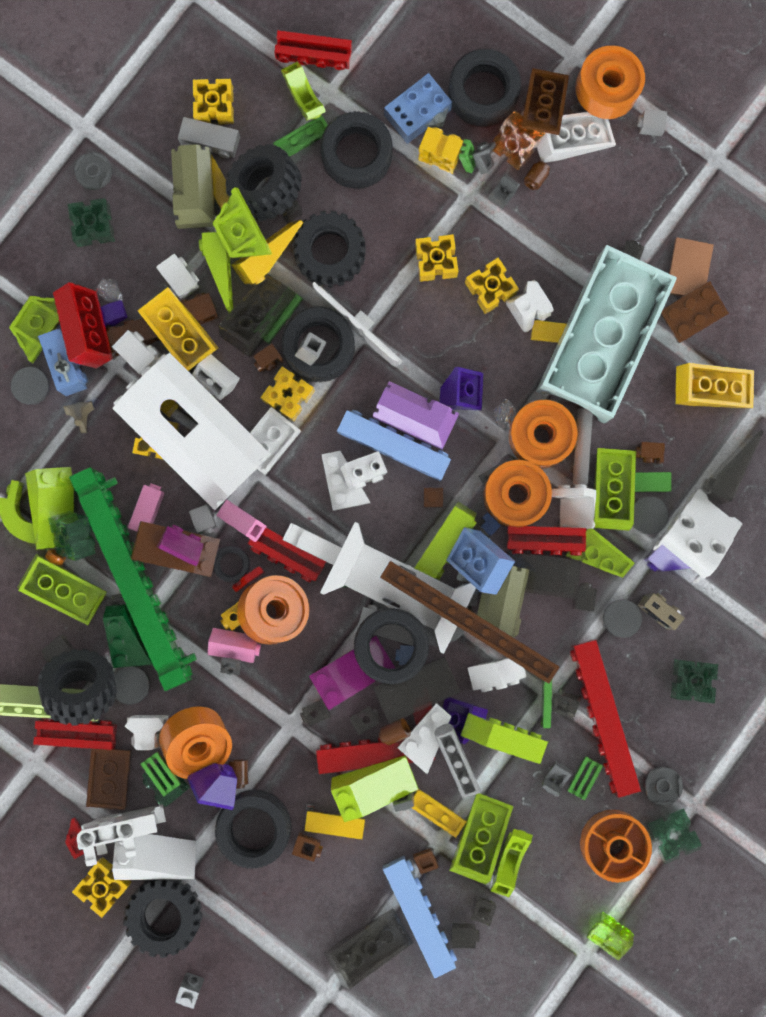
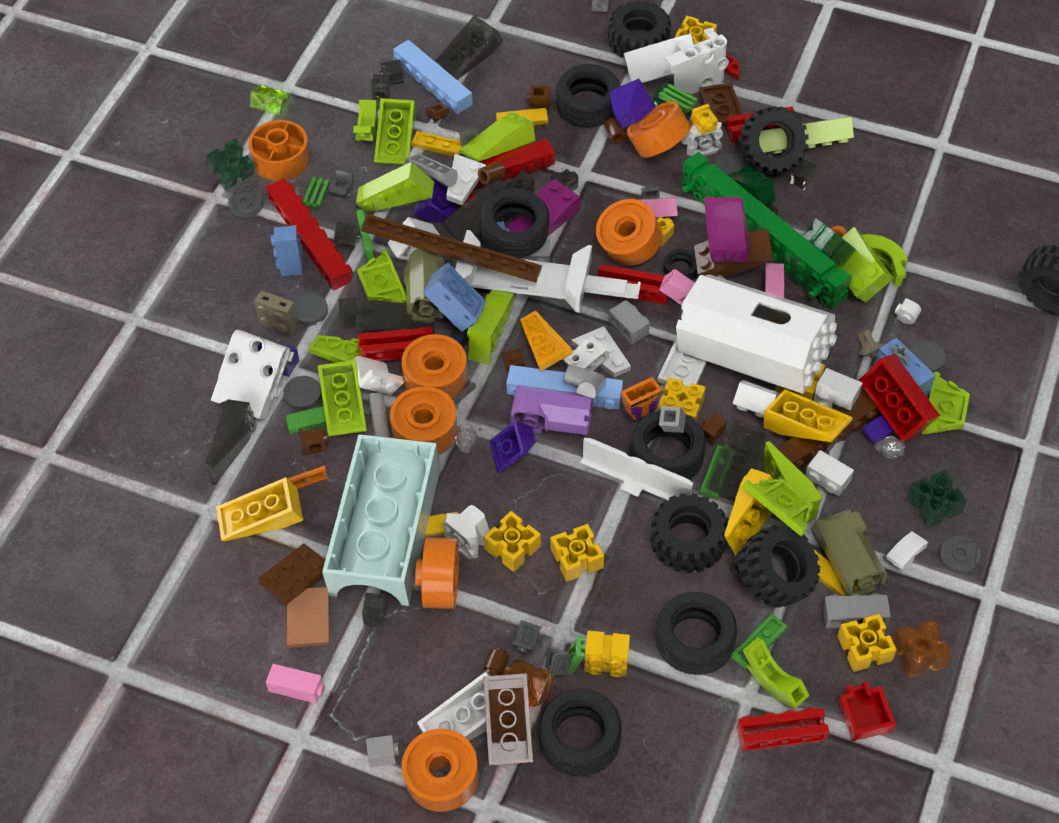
camera: 165 degrees right, 30 degrees down
(26, 440) = (908, 311): none -> white plate
(61, 589) = (830, 210): lime slope -> none
(139, 183) = (906, 550): none -> white slope
(150, 731) = (704, 119): none -> yellow brick
(175, 94) = (922, 648): none -> clear orange brick
(238, 45) = (866, 711): none -> red piece
(248, 578) = (657, 261): red tile -> none
(306, 506) = (629, 322): none -> light grey brick
(328, 396) = (641, 398): none -> orange torso
(372, 430) = (588, 381): none -> light grey brick
(399, 497) = (544, 341): none -> light orange wing
(418, 108) = (645, 695): medium blue piece -> none
(543, 628) = (381, 280): none -> lime wing
(569, 259) = (438, 573): none -> orange piece
(633, 691) = (287, 250): none -> medium blue wedge
(664, 415) = (310, 477): none -> orange slope
(702, 689) = (233, 272): clear green brick -> none
(713, 203) = (295, 683): none -> bright pink brick

